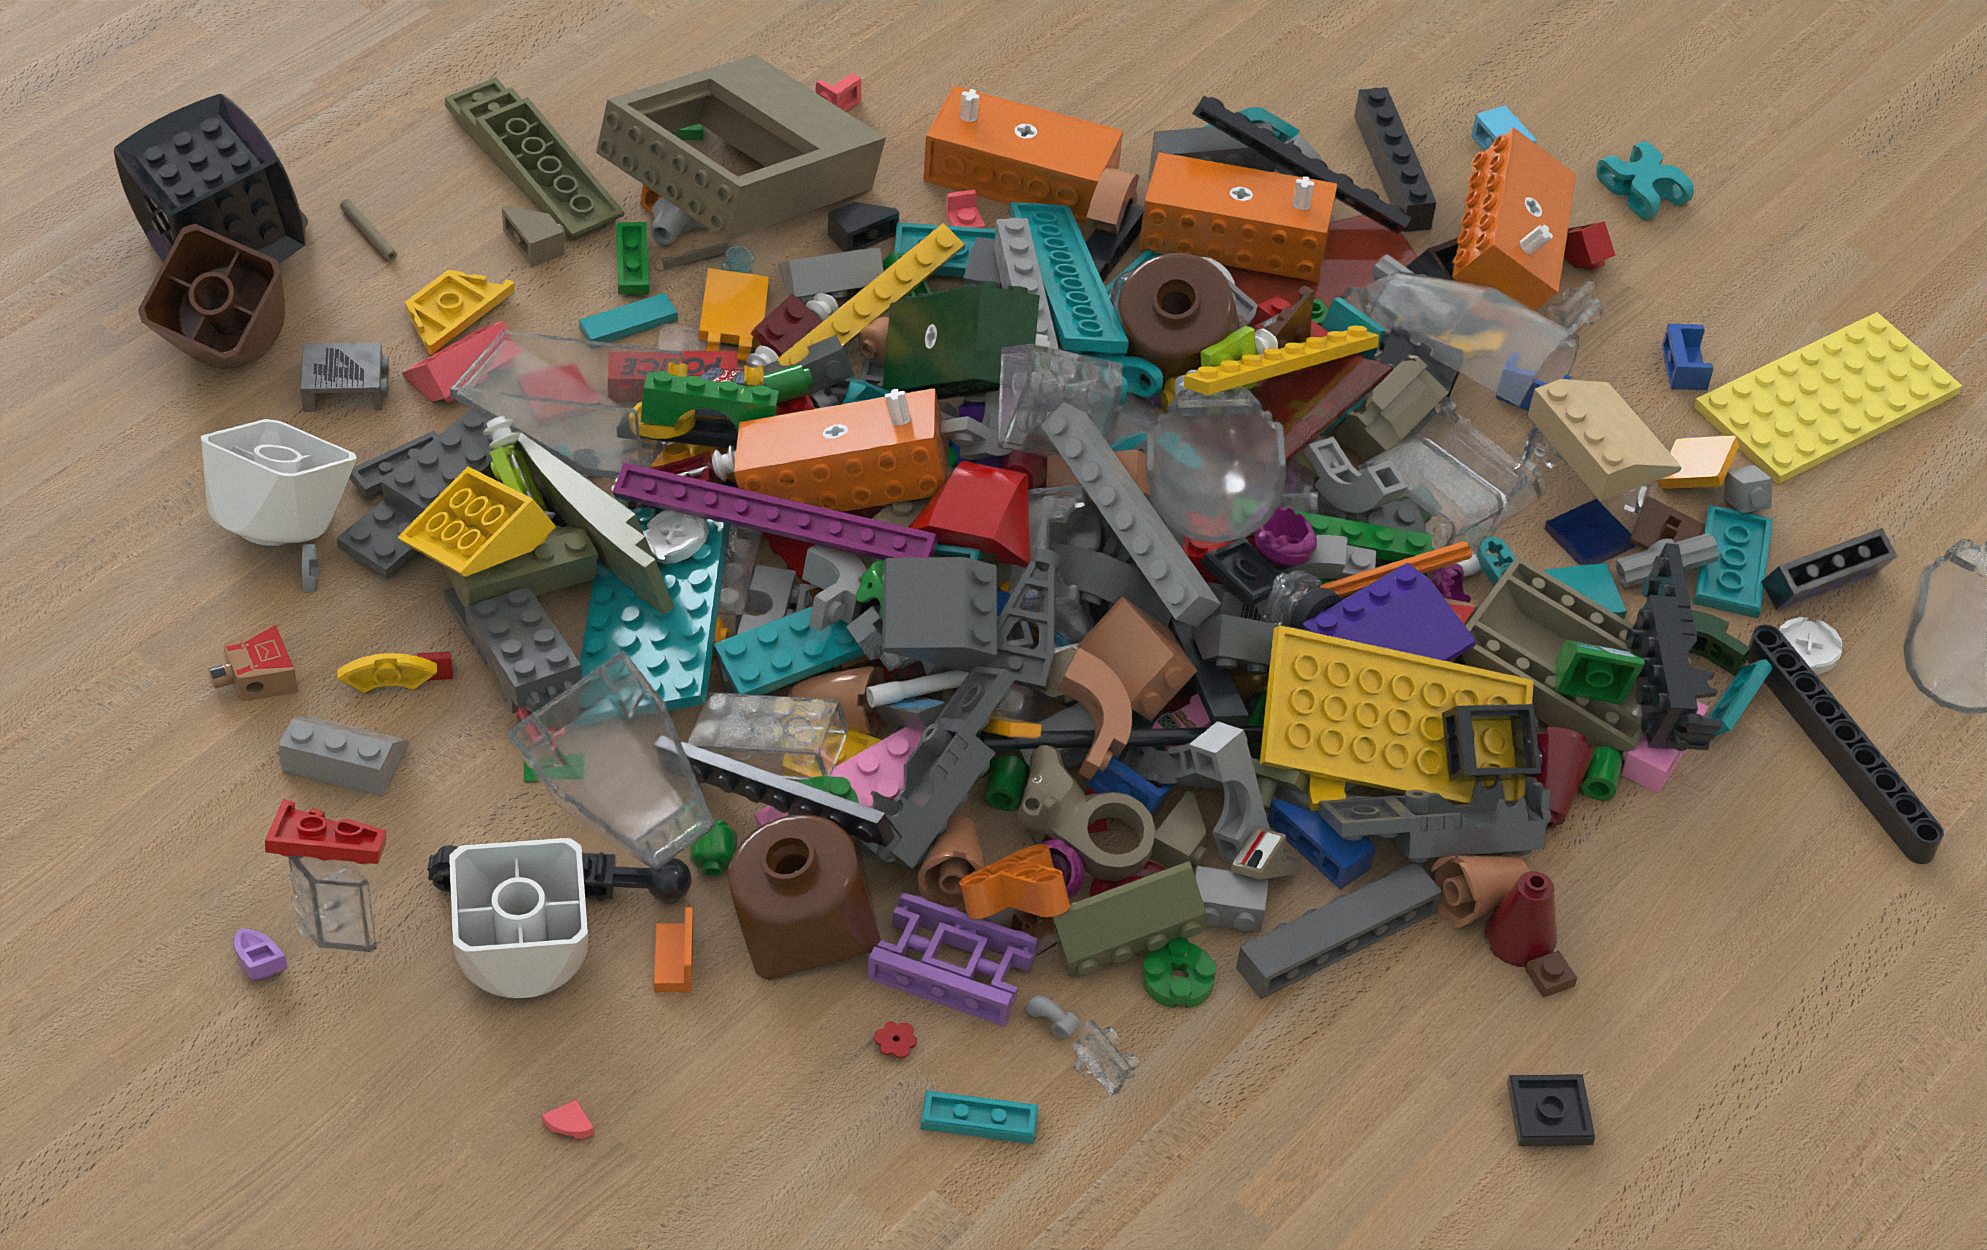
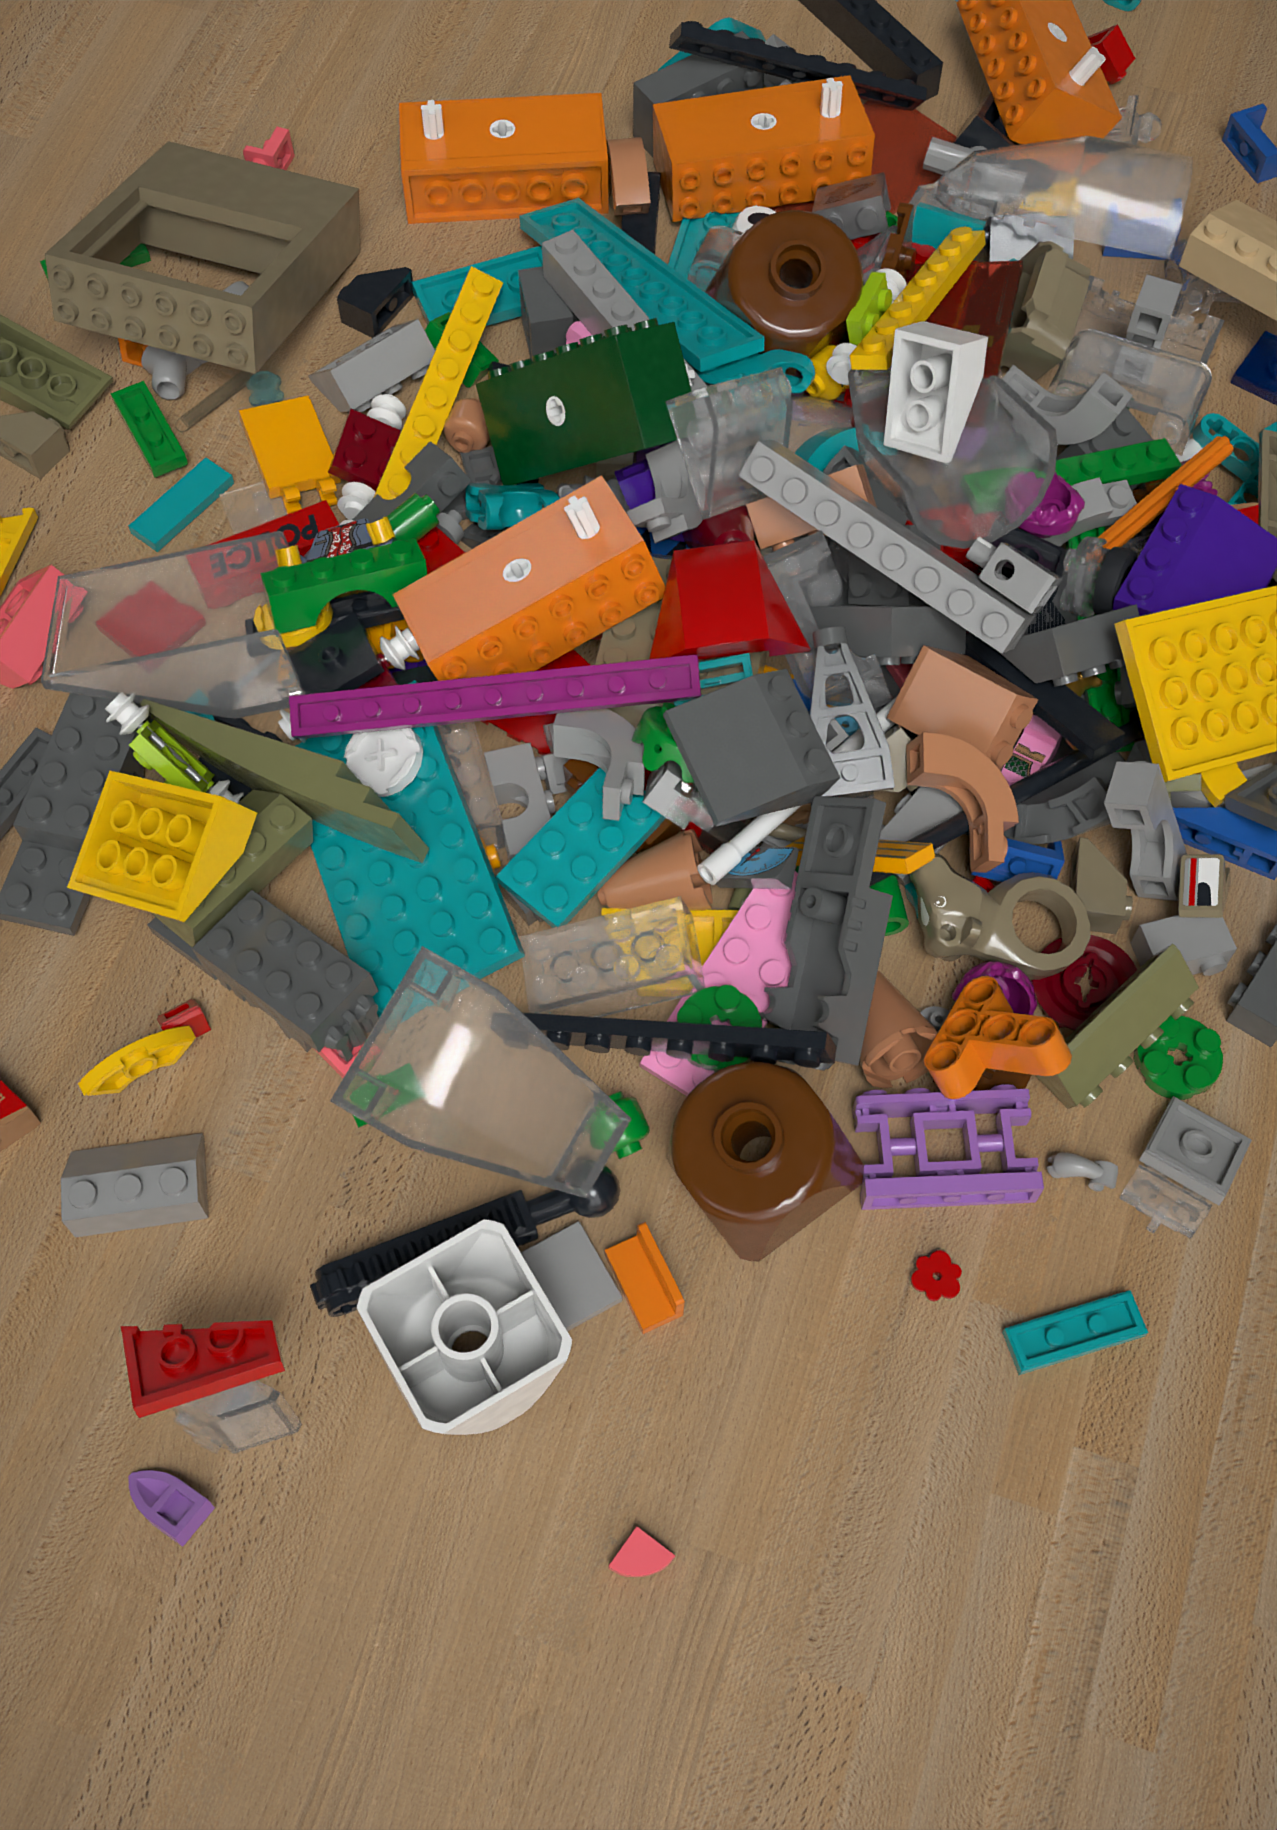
camera: 20 degrees left, 15 degrees up
(618, 933) = (572, 1276): none -> light grey tile
(678, 453) = (337, 658): none -> black plate
(962, 209) = (469, 243): coral bracket -> none
(1148, 1034) = (1195, 1150): none -> light grey tile
(1219, 571) = (1031, 582): none -> light grey torso
(1230, 416) = (932, 388): none -> white slope
(1279, 284) = (855, 205): none -> flat silver panel
(1476, 440) = (1153, 311): none -> light grey arch

